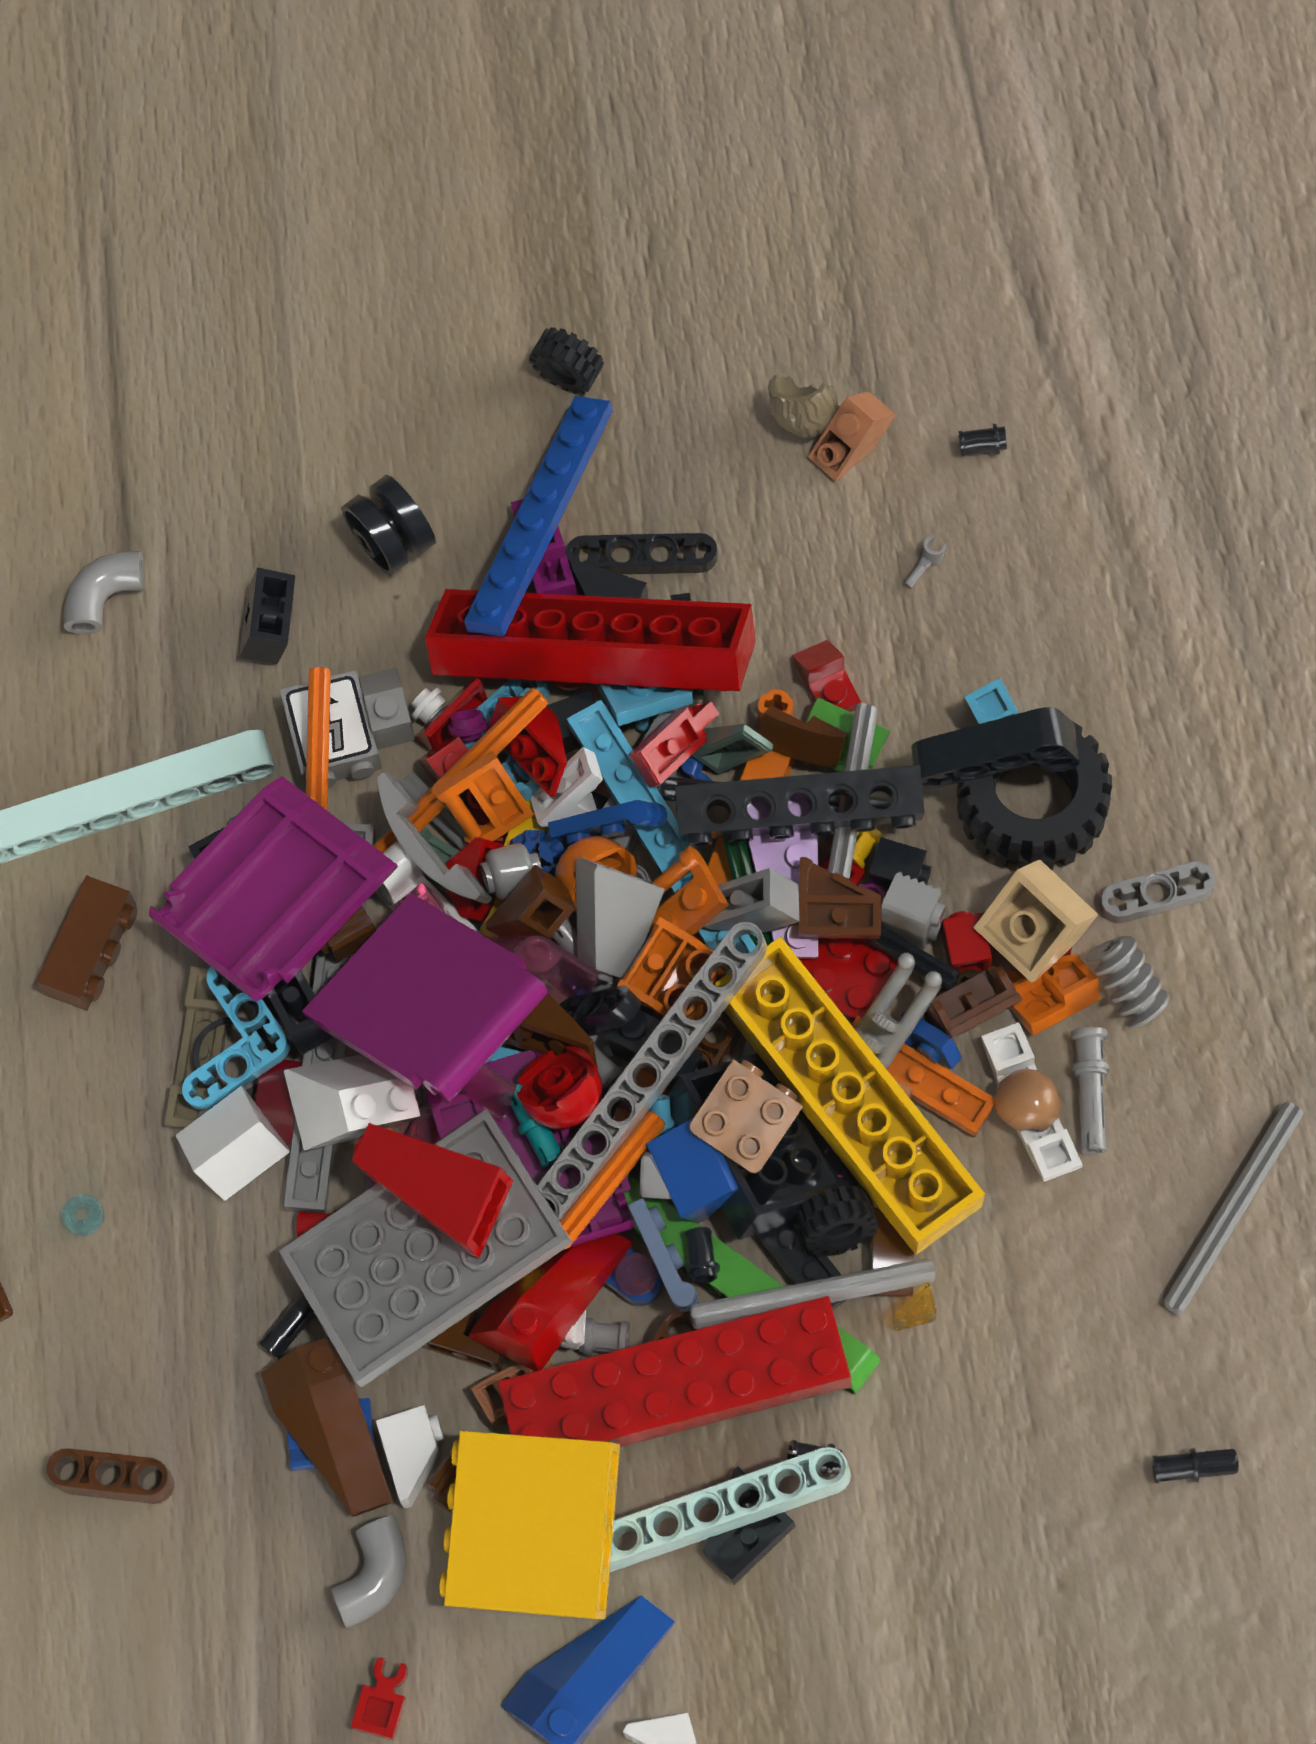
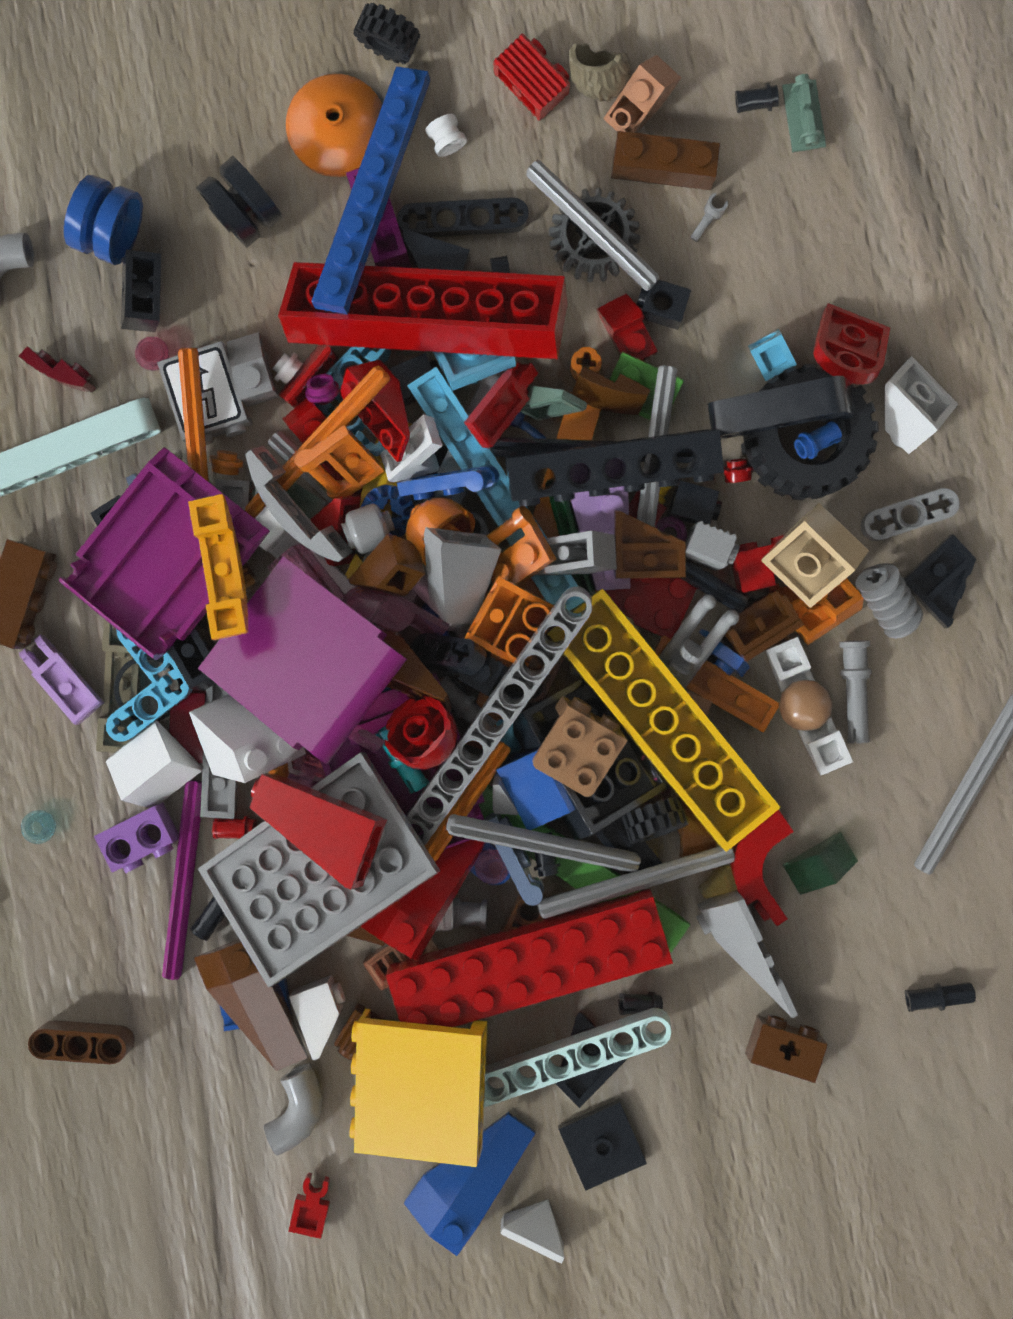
camera: 10 degrees left, 20 degrees up
(132, 1046) = (62, 682): none -> lavender hinge
(166, 703) = (69, 375): none -> dark red slope
(200, 1219) = (136, 834): none -> medium lavender brick
(232, 538) = (103, 219): none -> blue wheel
(253, 1288) = (183, 881): none -> magenta axle
(268, 683) = (150, 351): none -> clear pink plate
(339, 891) = (221, 566): none -> light orange slope
(348, 805) = (225, 462): none -> orange plate
(491, 472) = (332, 145): none -> orange dish
(627, 467) = (446, 135): none -> white wheel
(699, 1232) = (542, 843): none -> light grey axle
(727, 410) = (532, 76): none -> red brick
(760, 1639) = (602, 1144): none -> black plate
(775, 554) = (576, 258): none -> dark grey gear
(788, 560) = (592, 225): none -> light grey axle
(874, 499) = (665, 160): none -> reddish brown brick
(876, 664) = (678, 299): none -> black brick
(932, 1366) = (738, 934): none -> light grey wedge
(951, 834) = (737, 471): none -> red plate
(964, 1256) = (749, 862): none -> red arch
(1013, 1535) = (799, 1061): none -> reddish brown brick
(1028, 791) = (811, 443): none -> blue pin
(1036, 458) = (803, 114): none -> sand green hinge
(1045, 1296) = (821, 864): none -> clear green slope
(1085, 695) = (850, 345): none -> red plate
(1160, 768) = (914, 406): none -> white slope
(1194, 965) = (941, 579): none -> black wing

